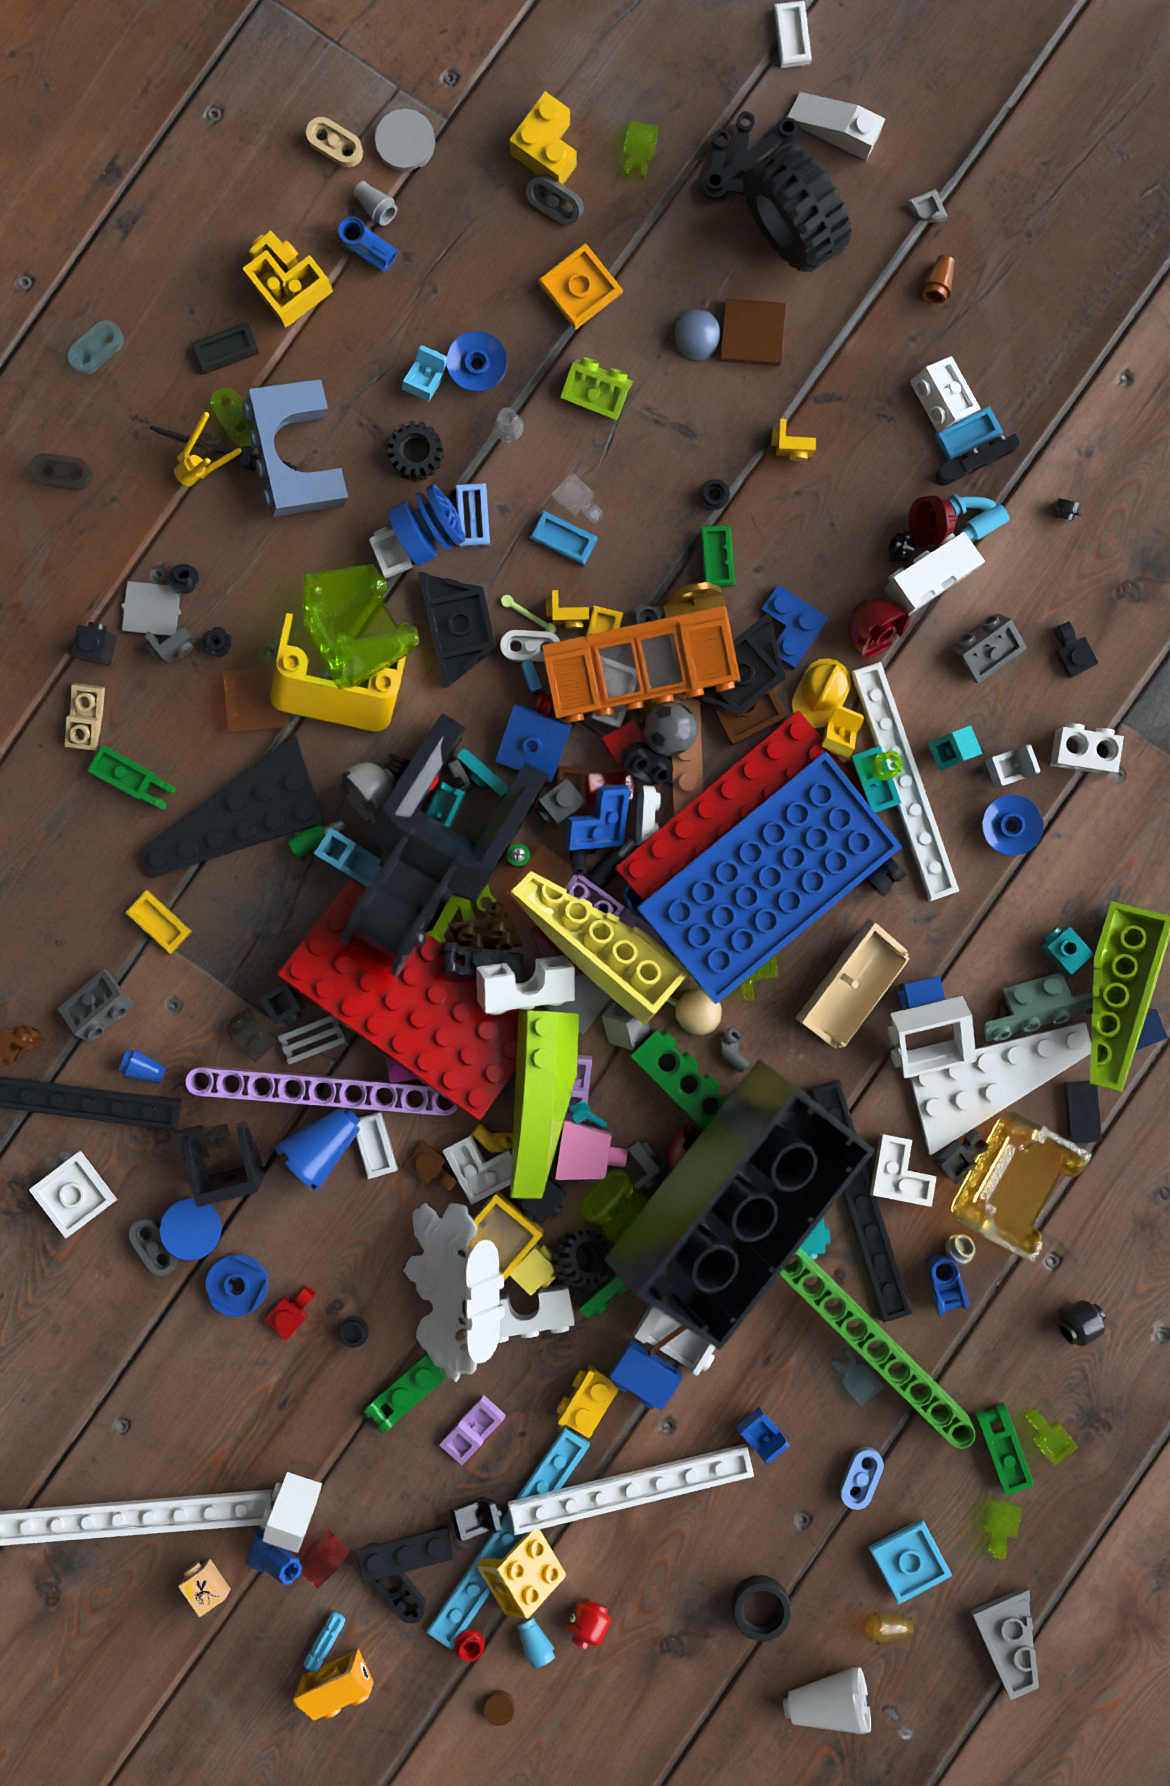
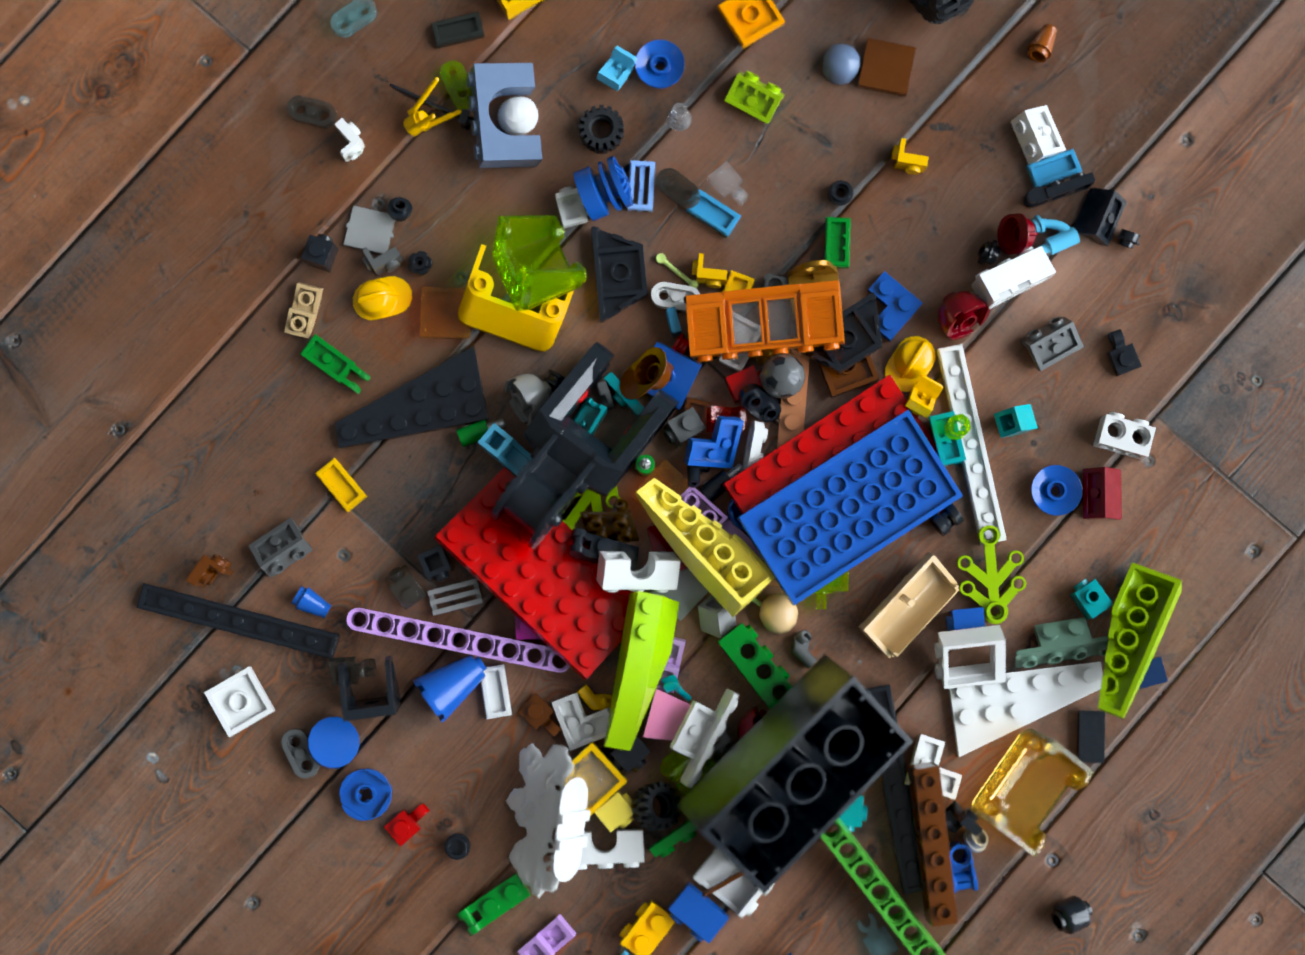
camera: 10 degrees right, 5 degrees down
(112, 492) = (350, 133): none -> white bracket
(177, 690) = (382, 298): none -> yellow piece
(312, 446) = (517, 116): none -> white piece
(506, 746) = (647, 373): none -> reddish brown piece
(519, 514) = (679, 189): none -> clear smoke plate
(622, 1167) = (699, 733): none -> white bracket
(910, 1262) = (932, 844): none -> reddish brown brick
(937, 1225) = (959, 816): none -> black bracket
(947, 940) = (992, 578): none -> lime plant
(958, 1157) = (982, 761): black plate -> none
(1012, 766) = (1061, 441): light grey bracket -> none
(1030, 484) = (1100, 215): none -> black panel
(1066, 822) = (1102, 493): none -> dark red panel

